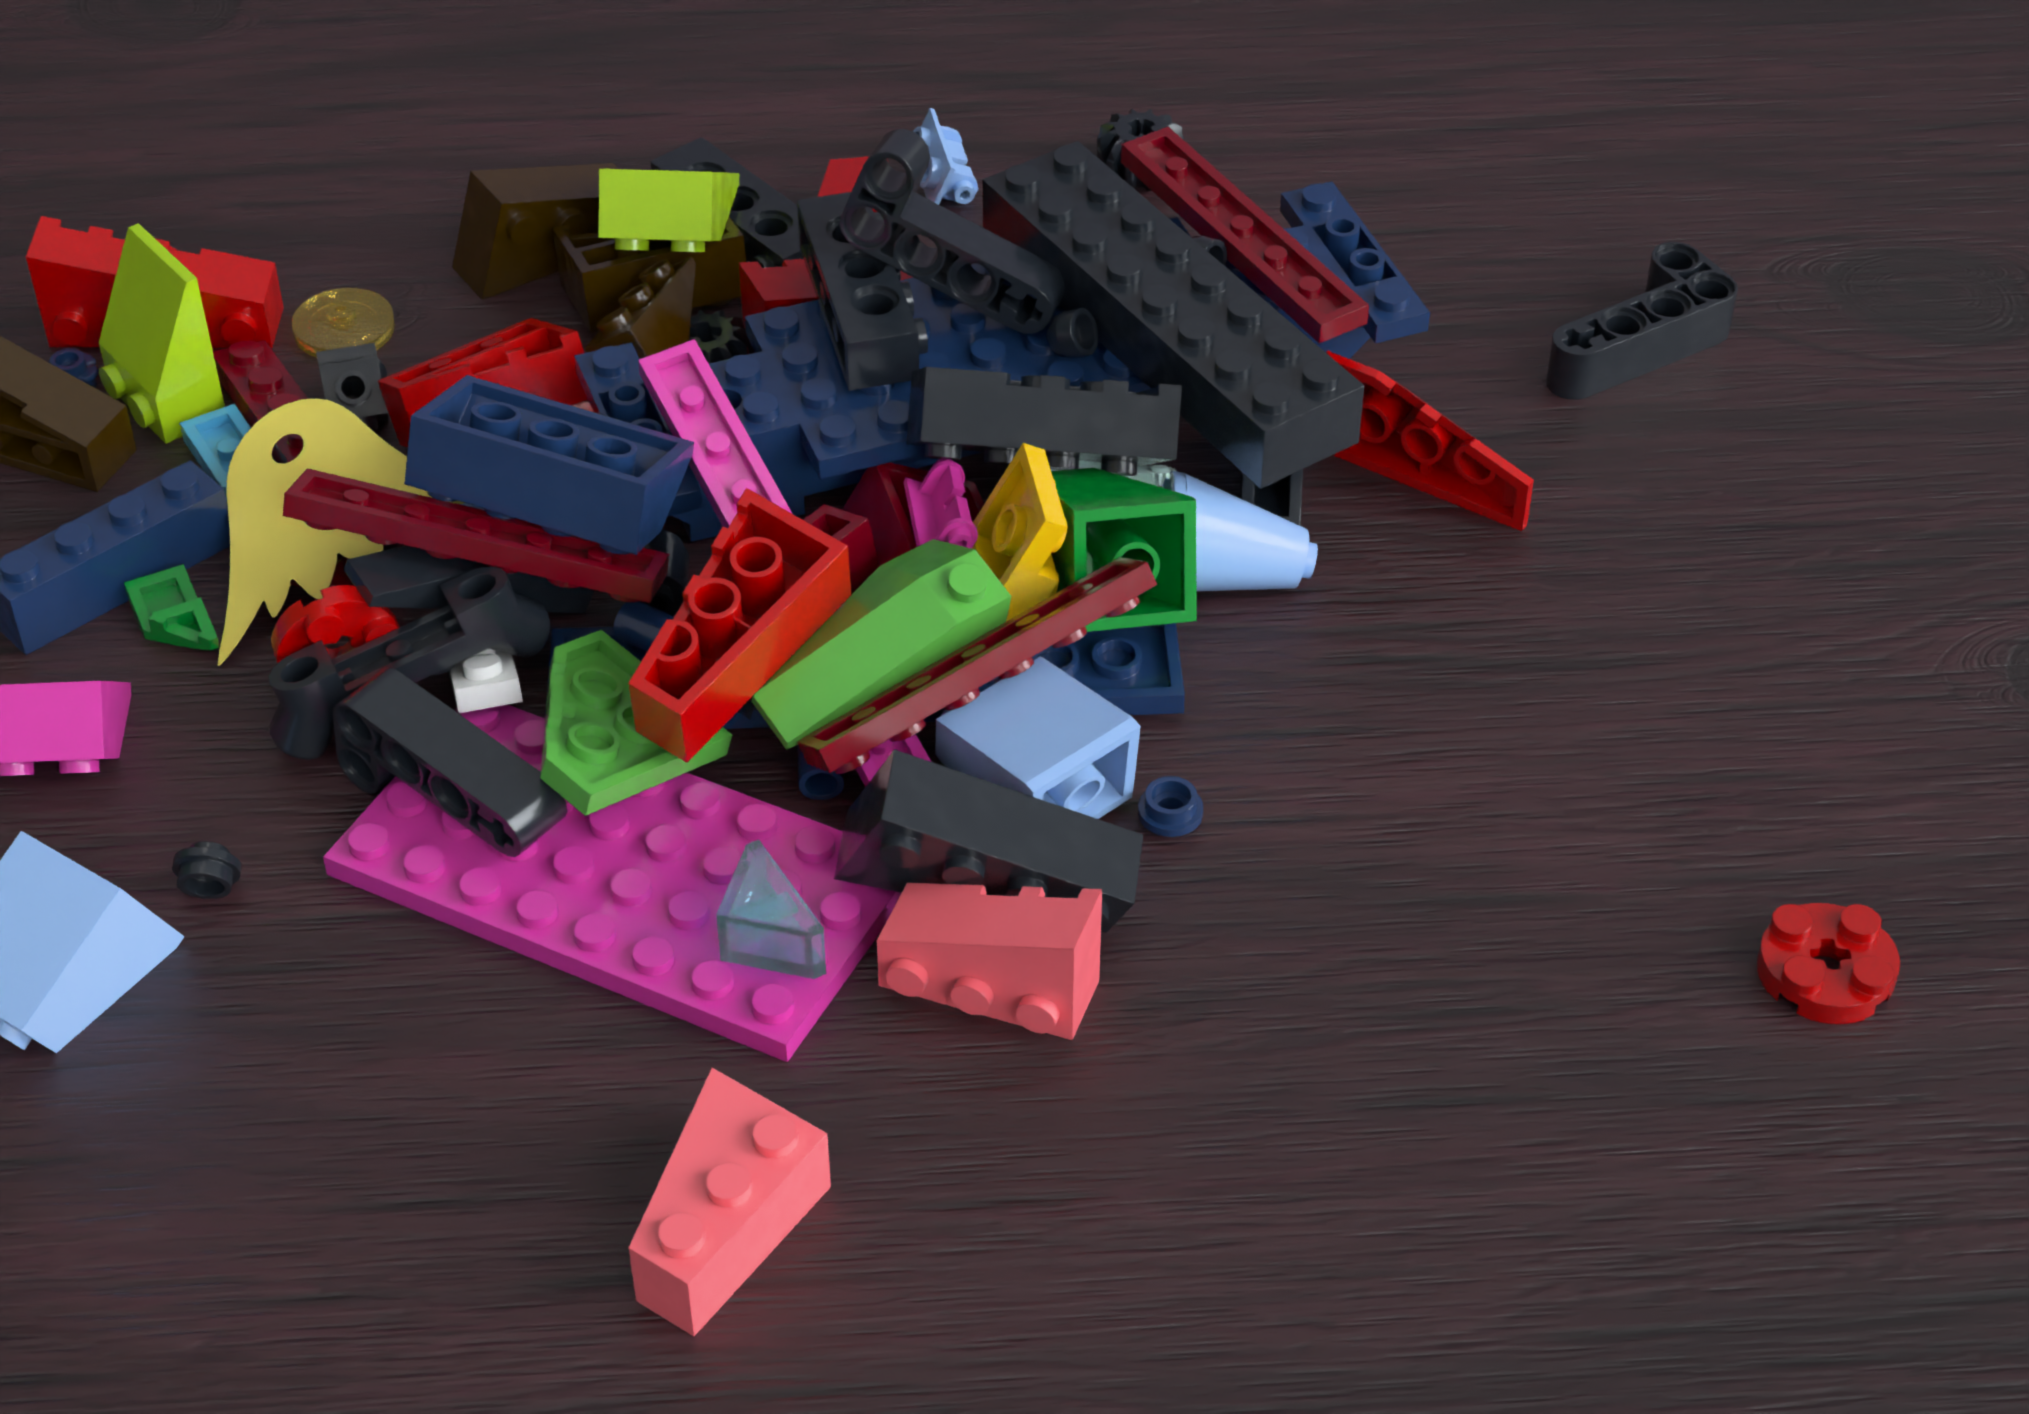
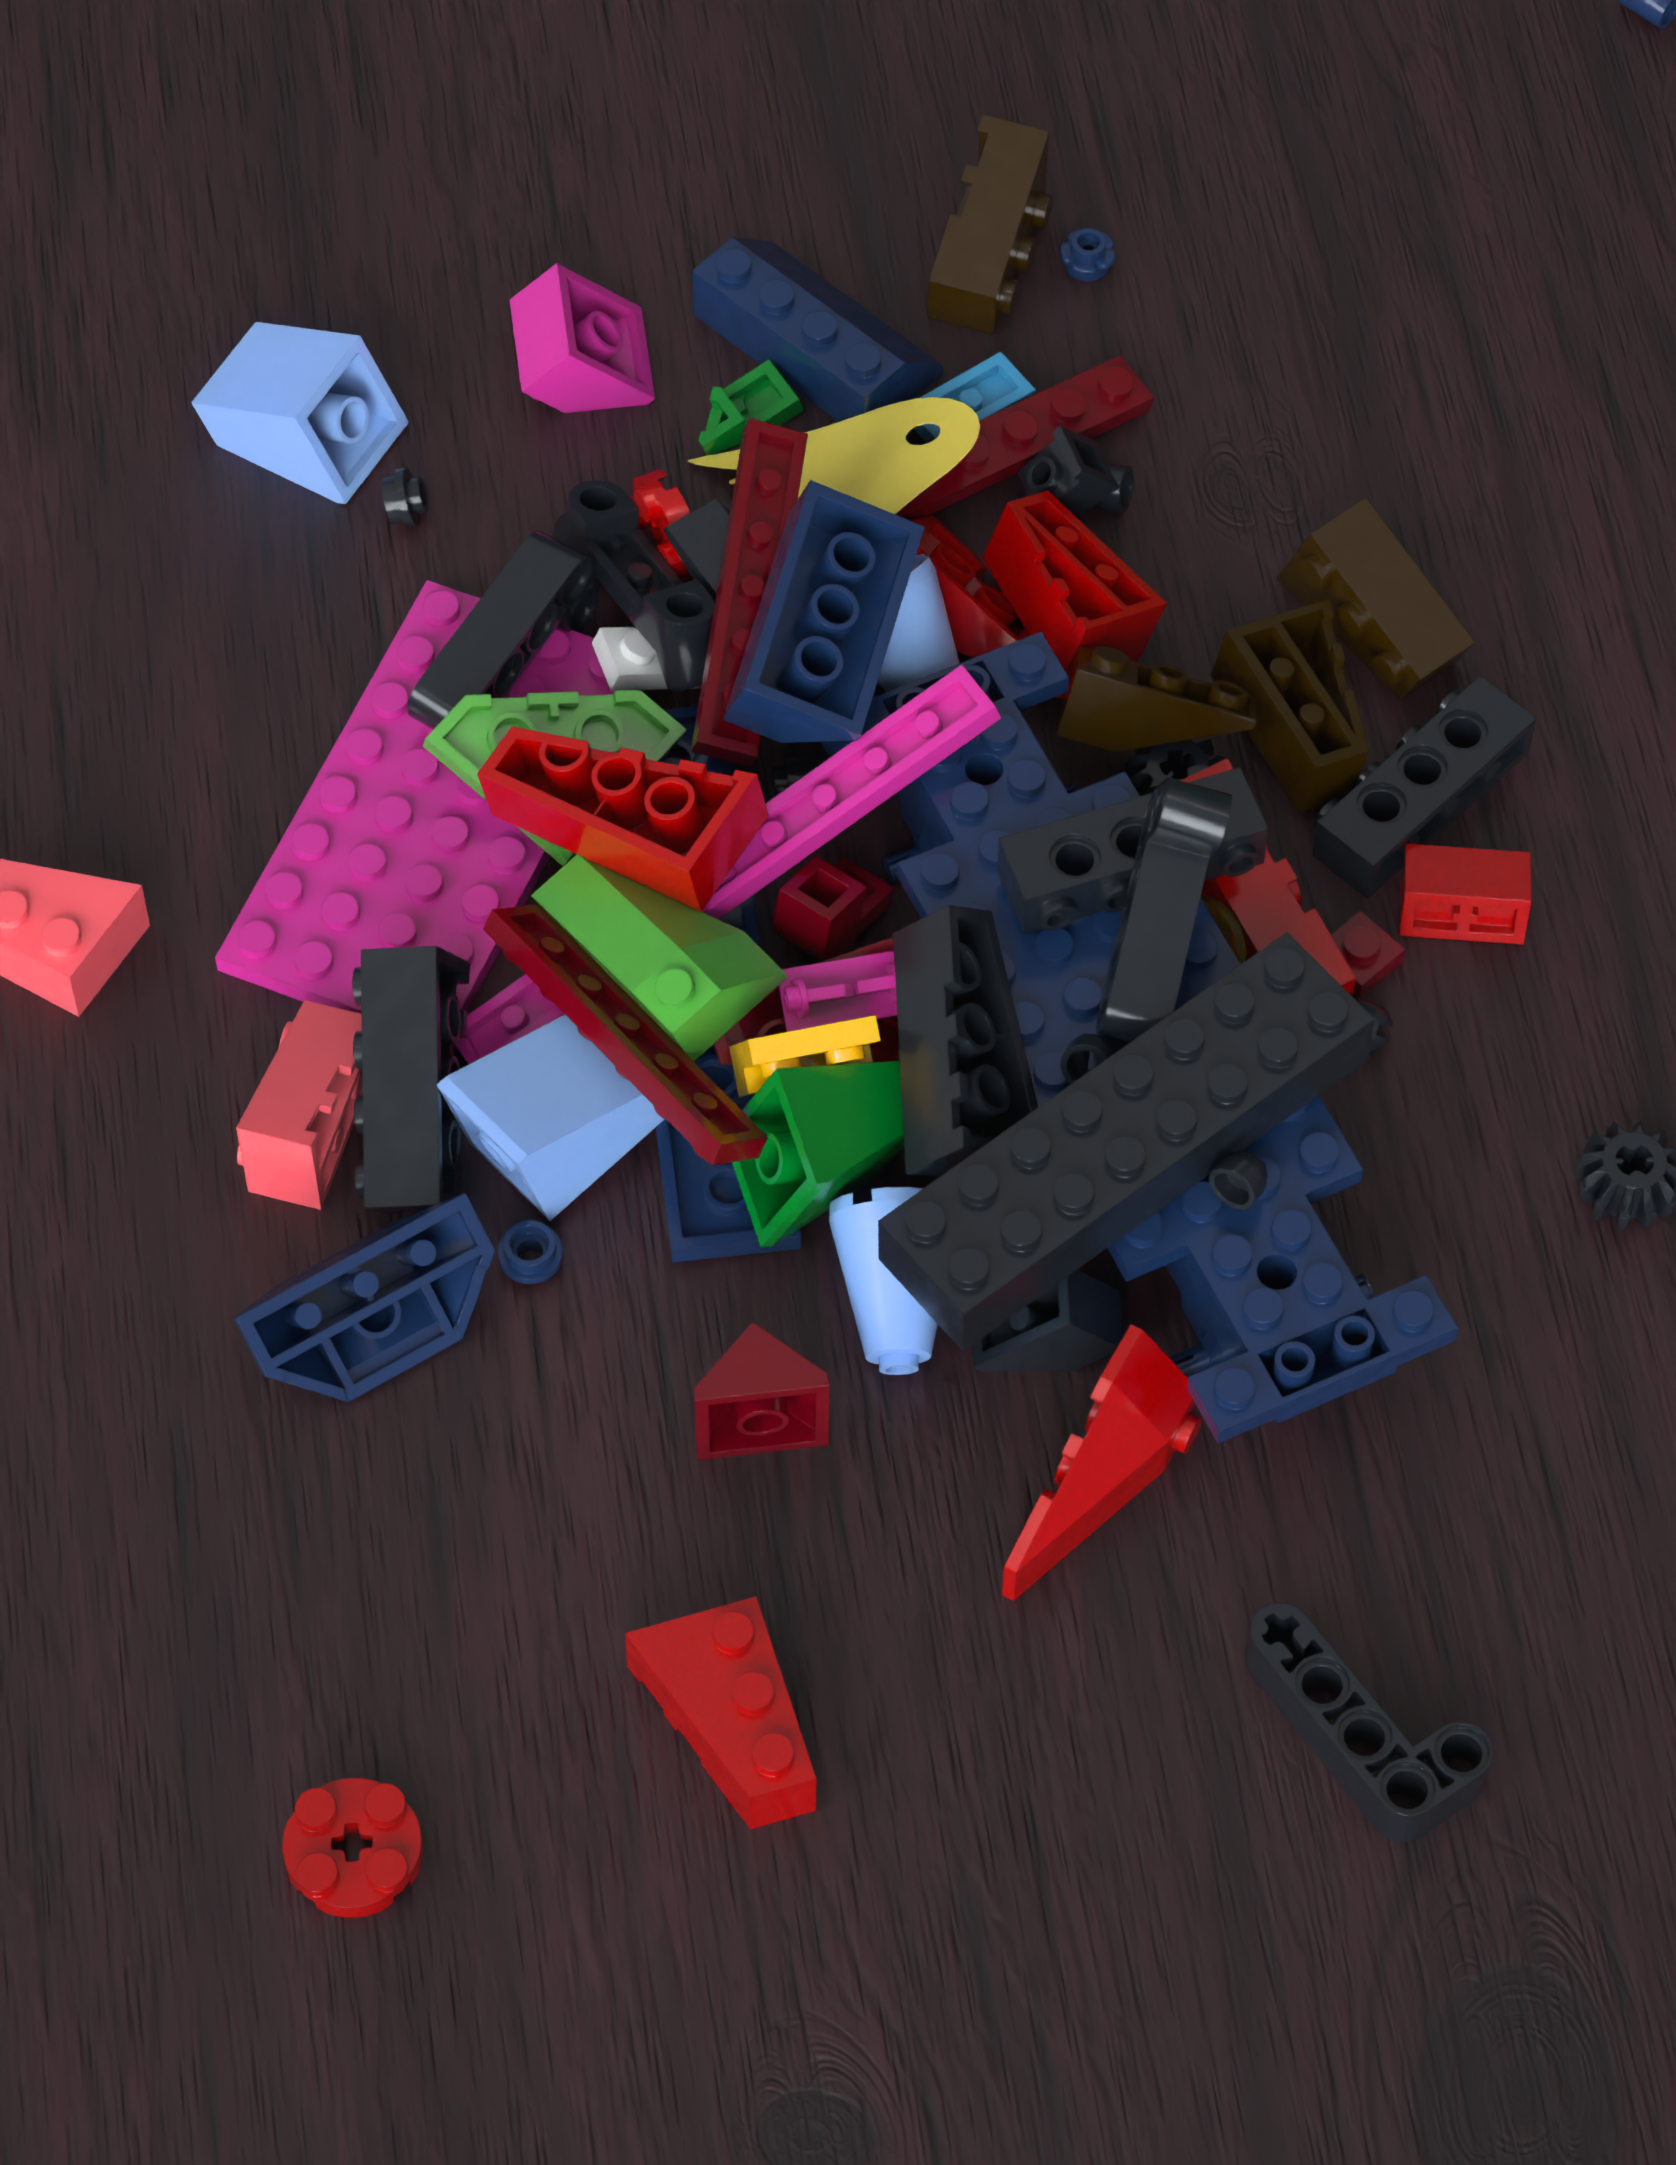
camera: 85 degrees right, 15 degrees up
(78, 269) = (1191, 283): red wedge -> none
(157, 340) = (1081, 310): lime slope -> none
(342, 320) = (1209, 462): clear yellow piece -> none
(664, 206) = (1342, 682): lime slope -> none
(767, 921) = (327, 907): clear light blue slope -> none
(947, 169) = (1552, 980): light blue hinge -> none
(1225, 905) = (373, 1304): none -> dark blue wedge
(1252, 238) = (1292, 1216): dark red plate -> none
(1358, 628) = (760, 1400): none -> dark red slope
(1667, 672) = (731, 1705): none -> red wedge

